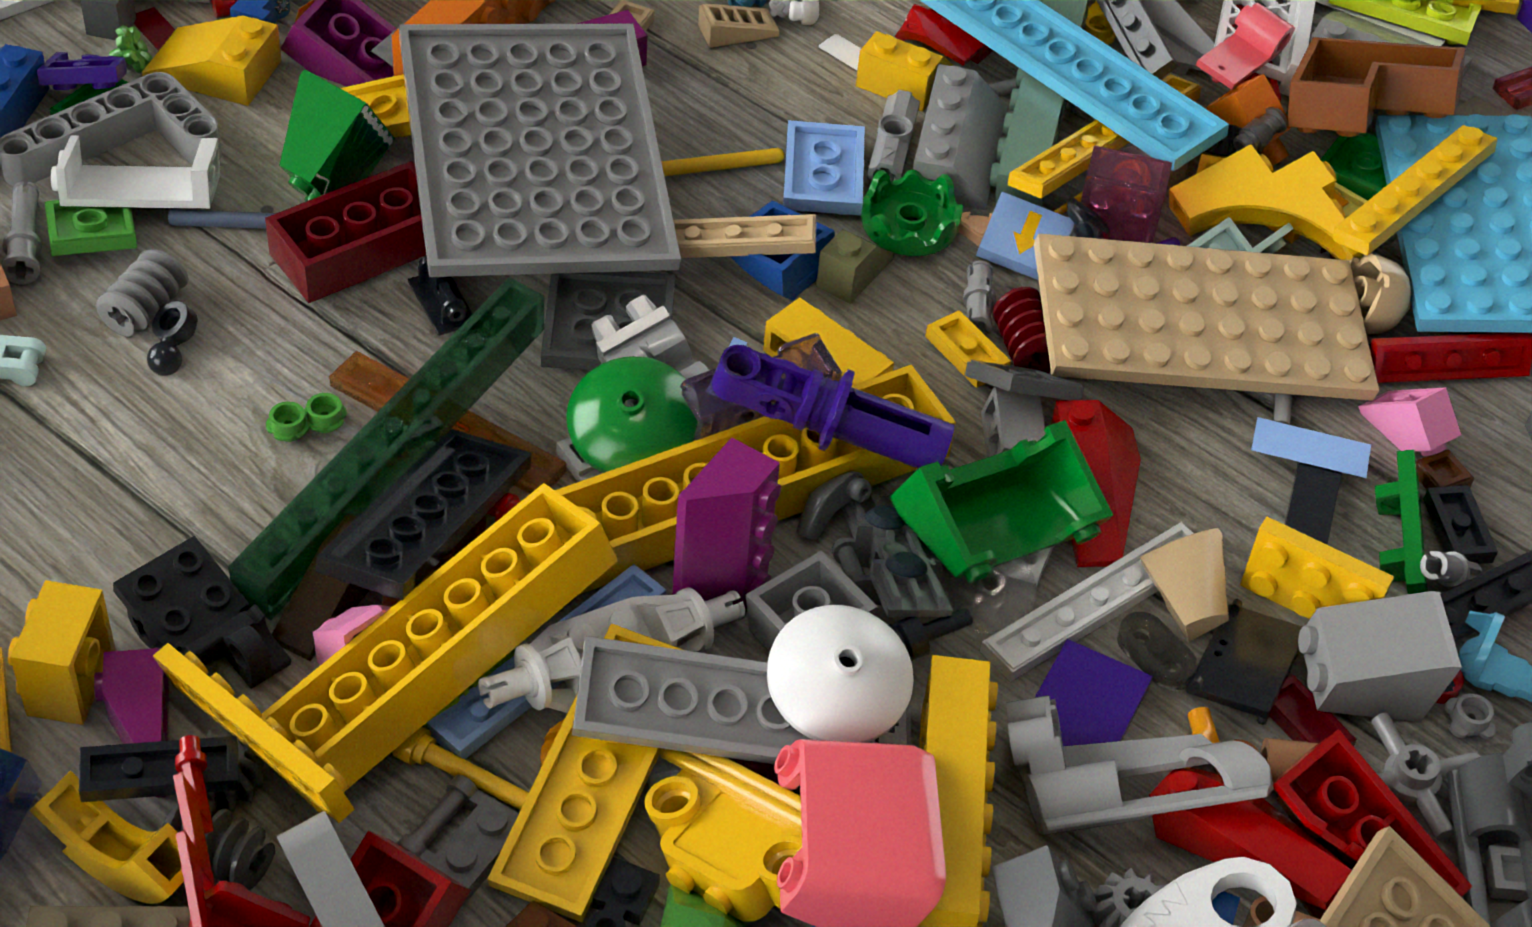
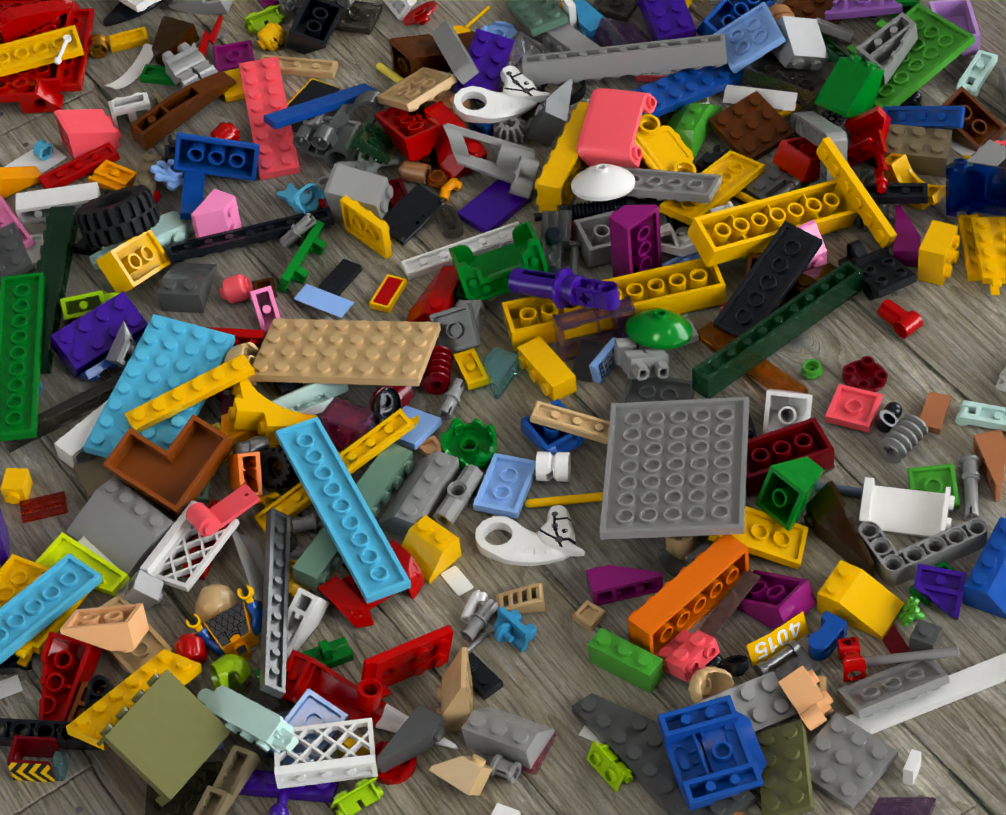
camera: 155 degrees left, 0 degrees up
(85, 362) = (935, 411): none -> nougat tile
(144, 521) = (902, 321): none -> red piece
(220, 409) = (865, 374): none -> dark red dish
(237, 346) = (853, 408): none -> coral plate
(248, 136) = (830, 524): none -> dark brown wedge
(287, 421) = (831, 366): bright green plate -> none
(366, 321) = (785, 409): none -> white slope
(722, 107) = (550, 544): none -> white animal
(752, 188) = (553, 466): none -> white wheel
(850, 265) = (508, 420): olive slope -> none
(917, 341) = (501, 369): none -> clear light blue slope
(1191, 581) = (419, 240): tan slope -> none
(1199, 488) = (388, 293): none -> tile
(1423, 765) = (375, 143): none -> clear green plate
(1460, 523) = (275, 259): black plate -> none
(1490, 448) = (236, 289): none -> coral head

